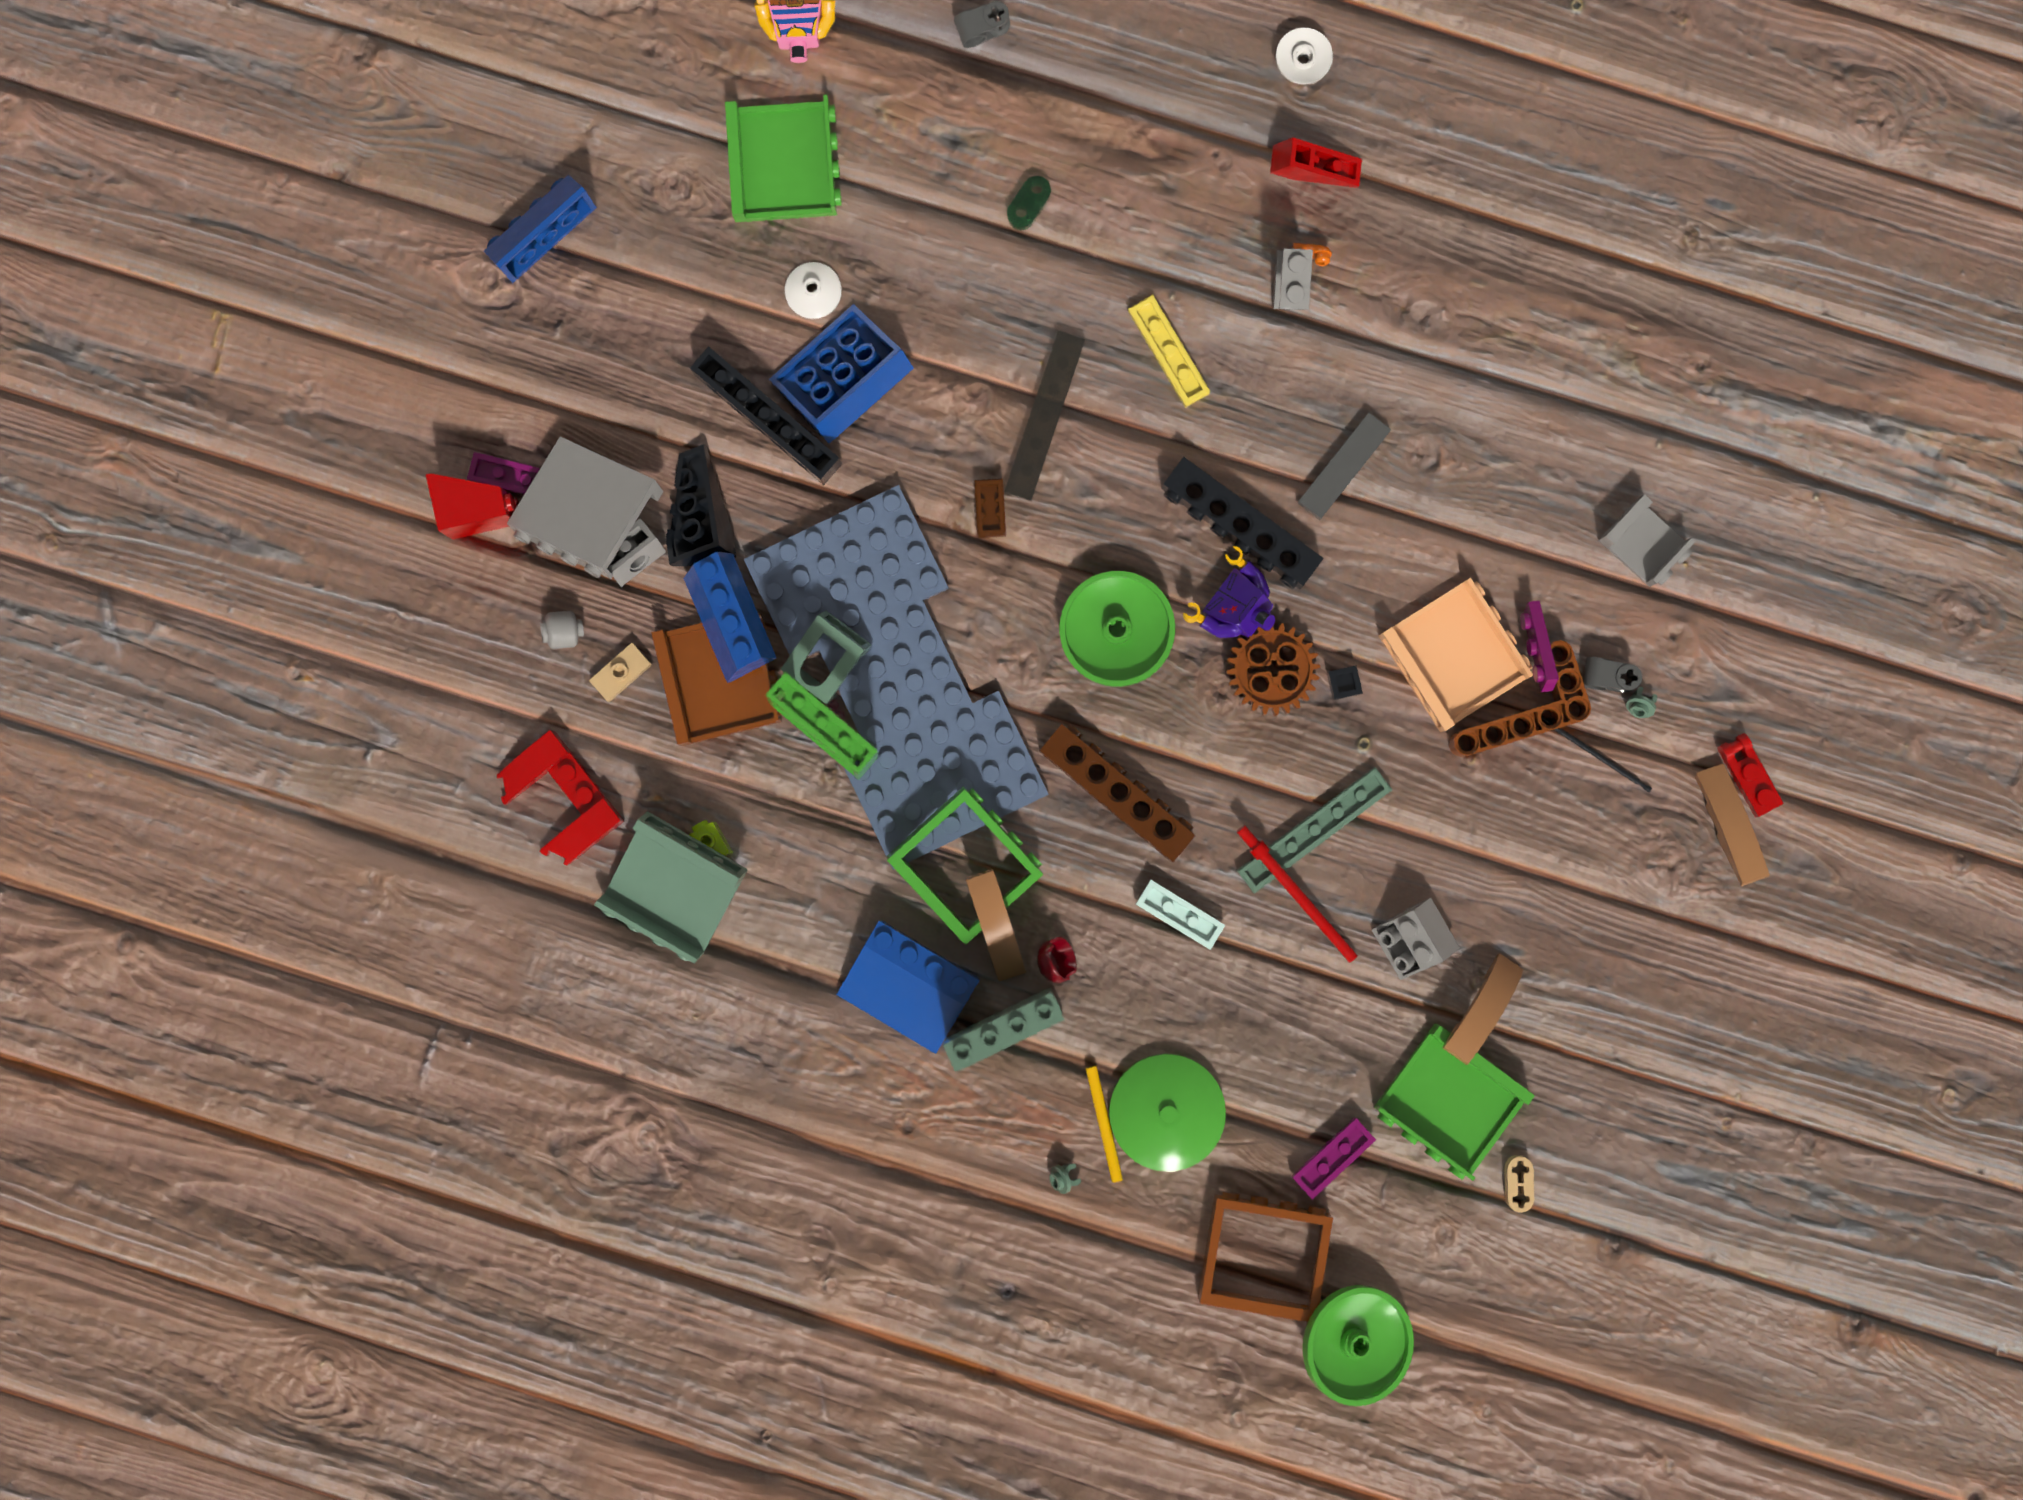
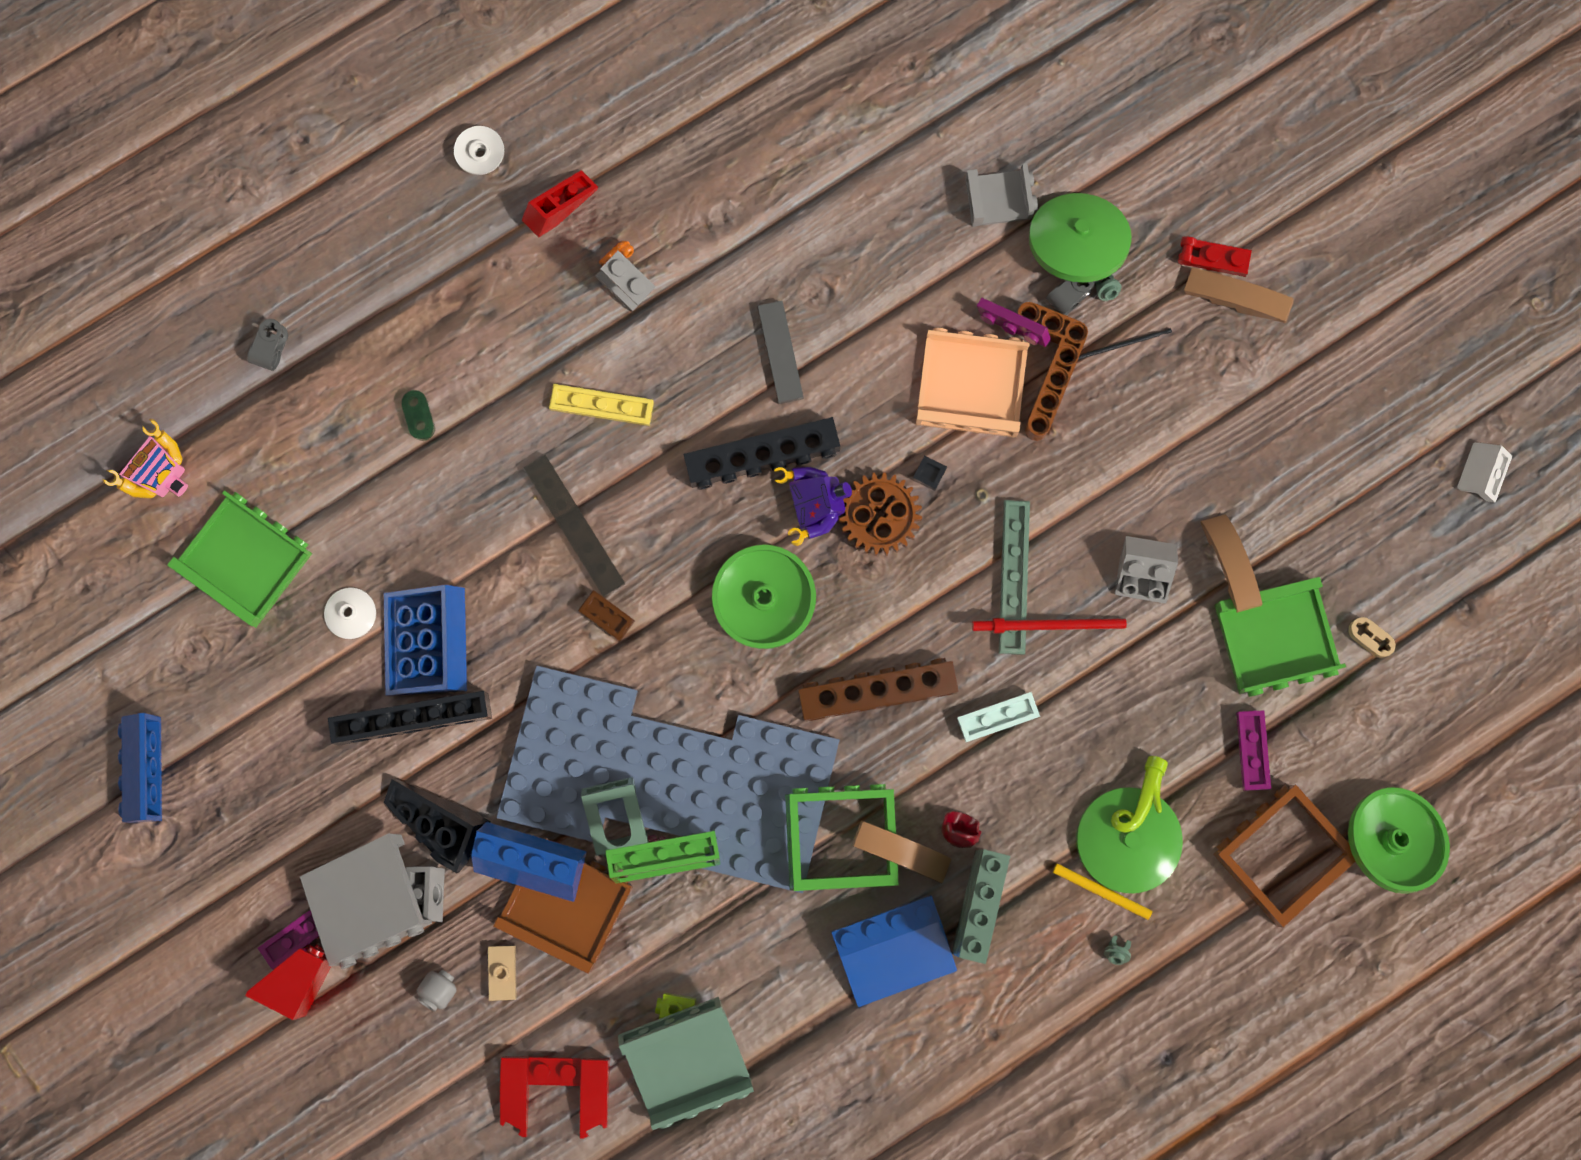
camera: 55 degrees left, 5 degrees down
(1222, 1097) = (1150, 793): none -> lime plant
(1666, 642) = (1080, 237): none -> bright green dish
(1753, 1167) = (1485, 470): none -> white panel

